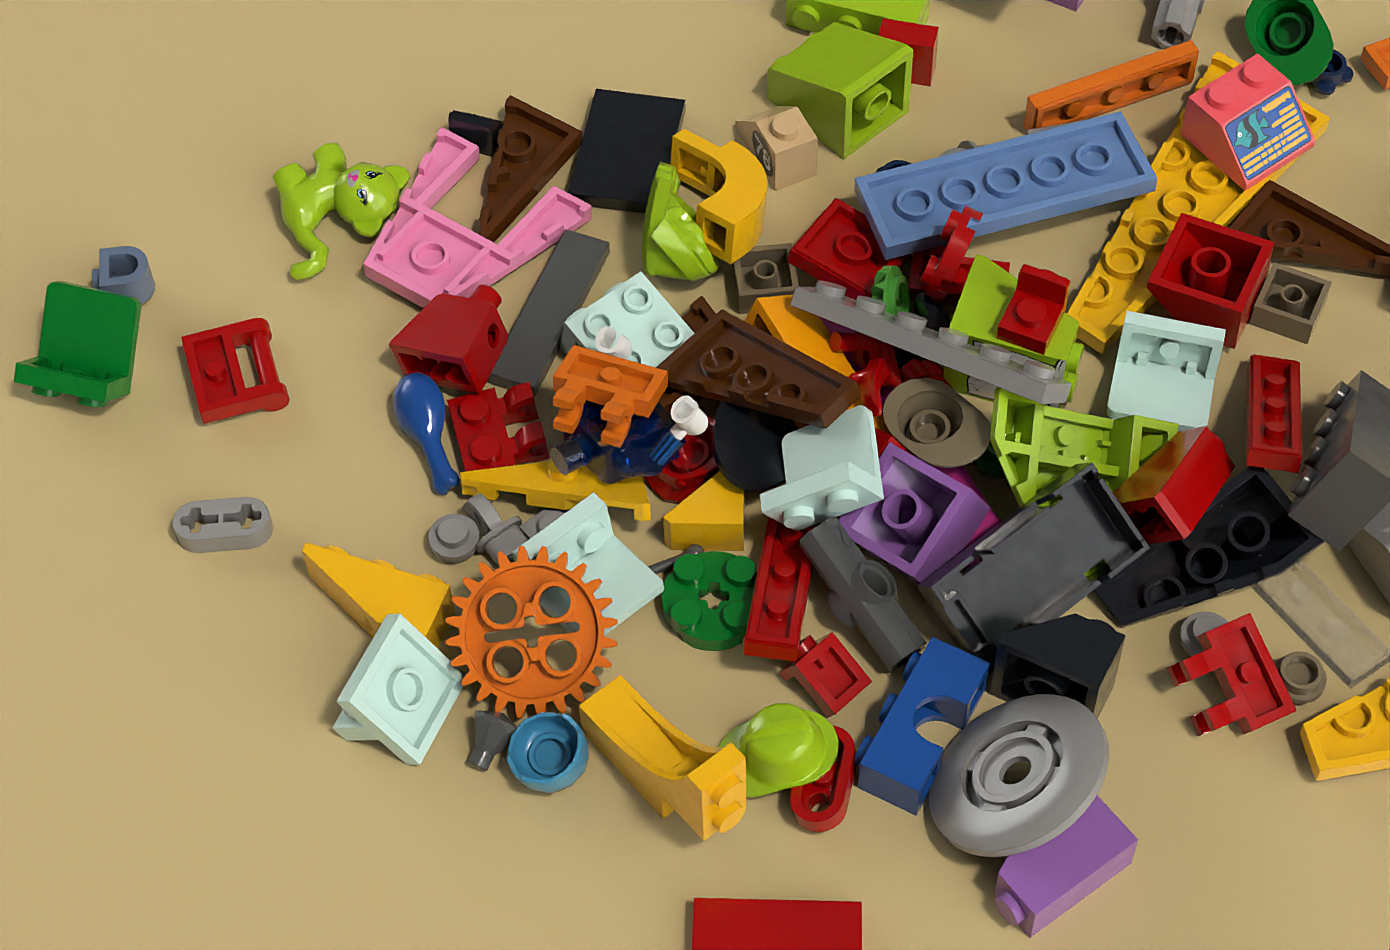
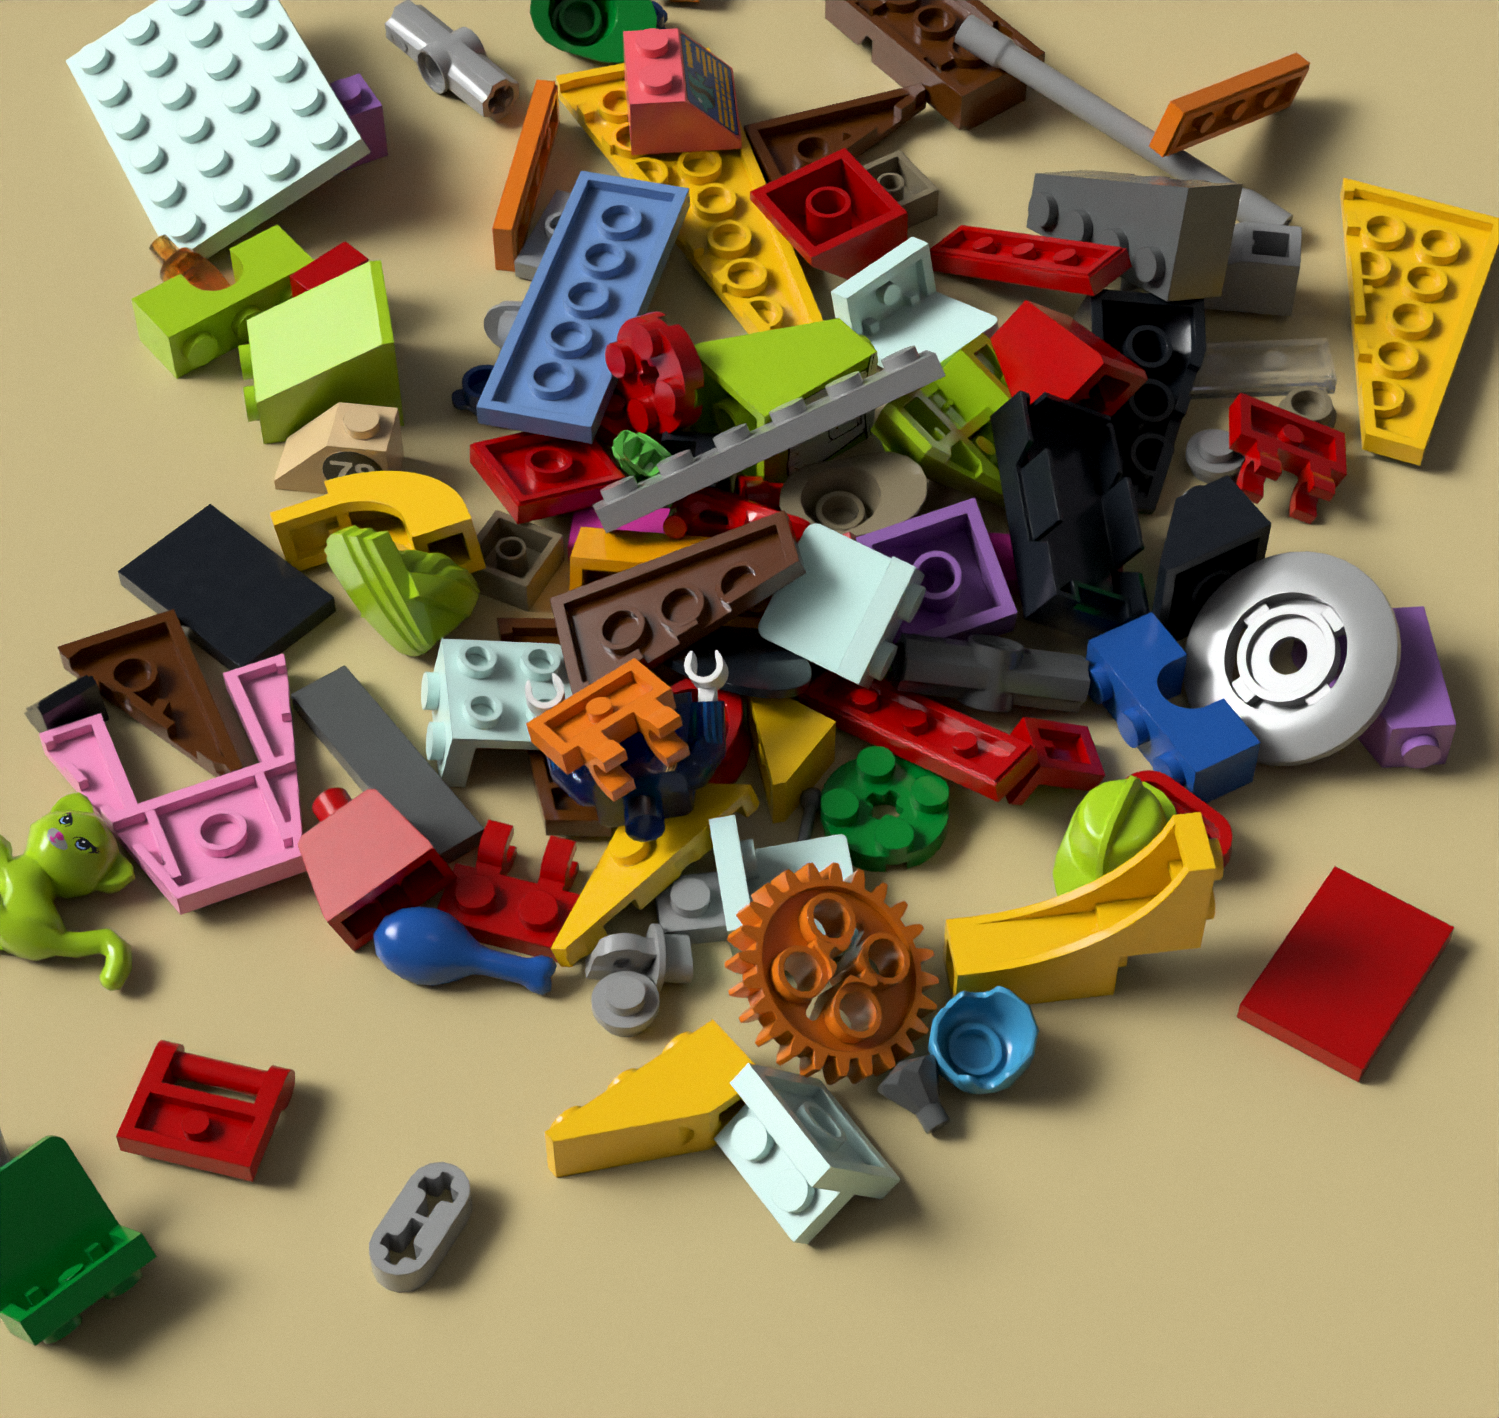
camera: 60 degrees left, 5 degrees down
(1034, 309) = (806, 334): red bracket -> none

